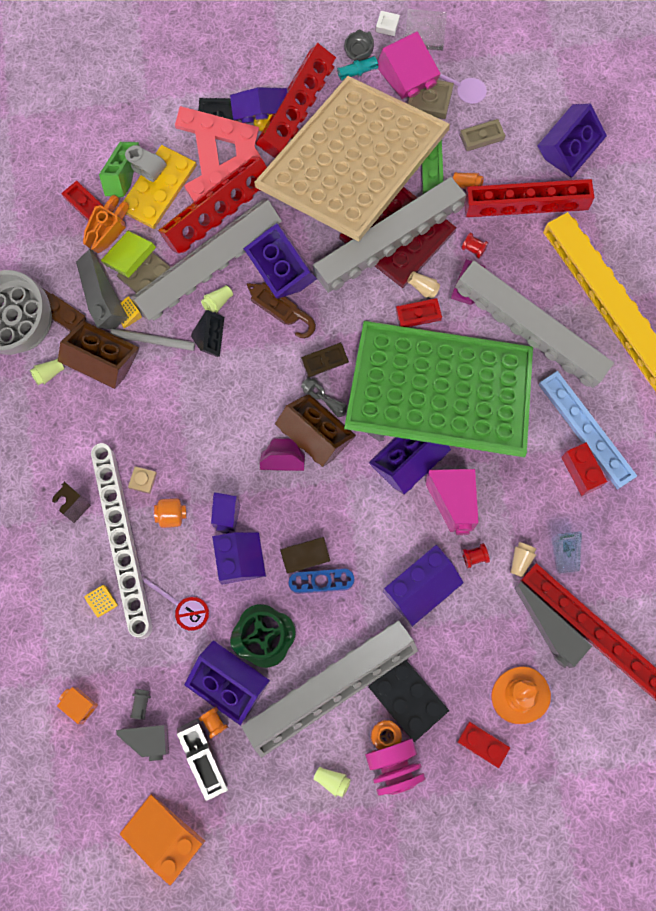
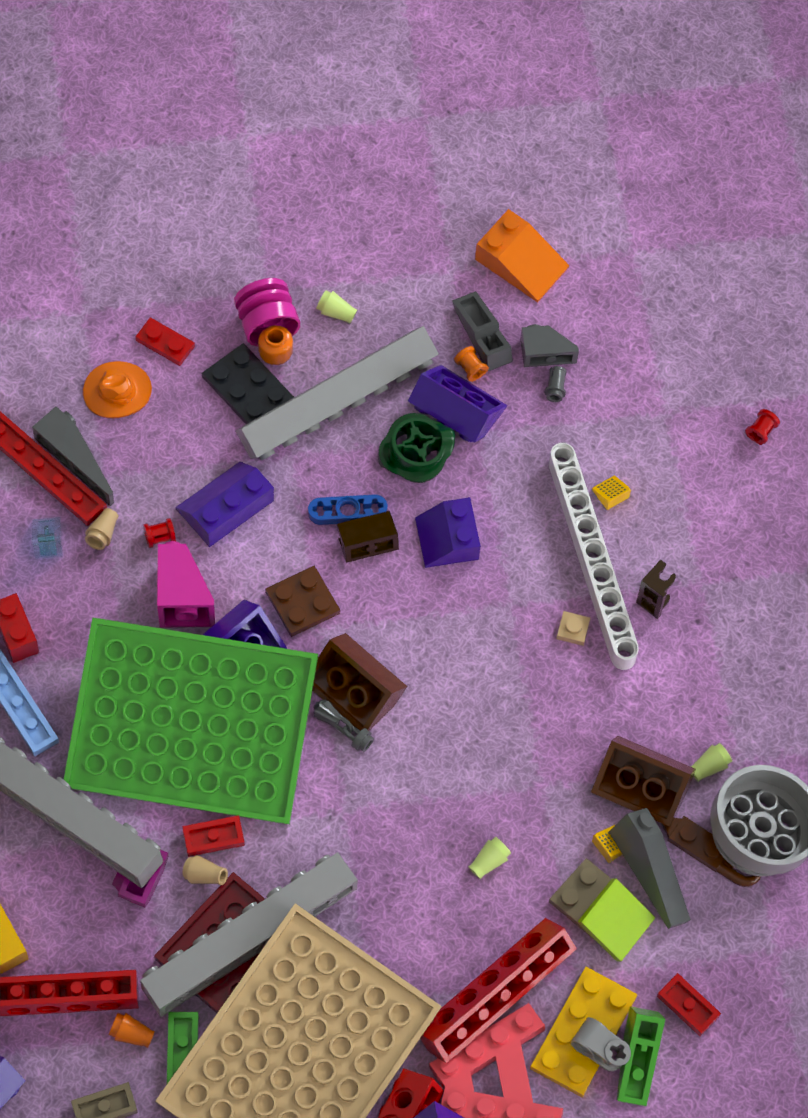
camera: 175 degrees right, 10 degrees down
(76, 705) = (627, 382): orange brick -> none
(105, 225) = (649, 963): orange hinge -> none
(153, 339) = (570, 807): light grey bar -> none
(169, 512) = (535, 583): orange head -> none
(190, 612) = (505, 480): piece -> none
(204, 261) = (505, 909): light grey brick -> none
(209, 333) = (498, 810): black slope -> none
(225, 512) = (465, 581): dark purple slope -> none
(280, 262) = (403, 901): dark purple slope -> none
(280, 308) = (403, 846): reddish brown plate -> none
(282, 455) = (397, 649): magenta slope -> none
(324, 360) = (343, 769): dark brown hinge -> none
(357, 500) = (302, 601): none -> reddish brown plate
(474, 245) = (129, 931): red bush -> none

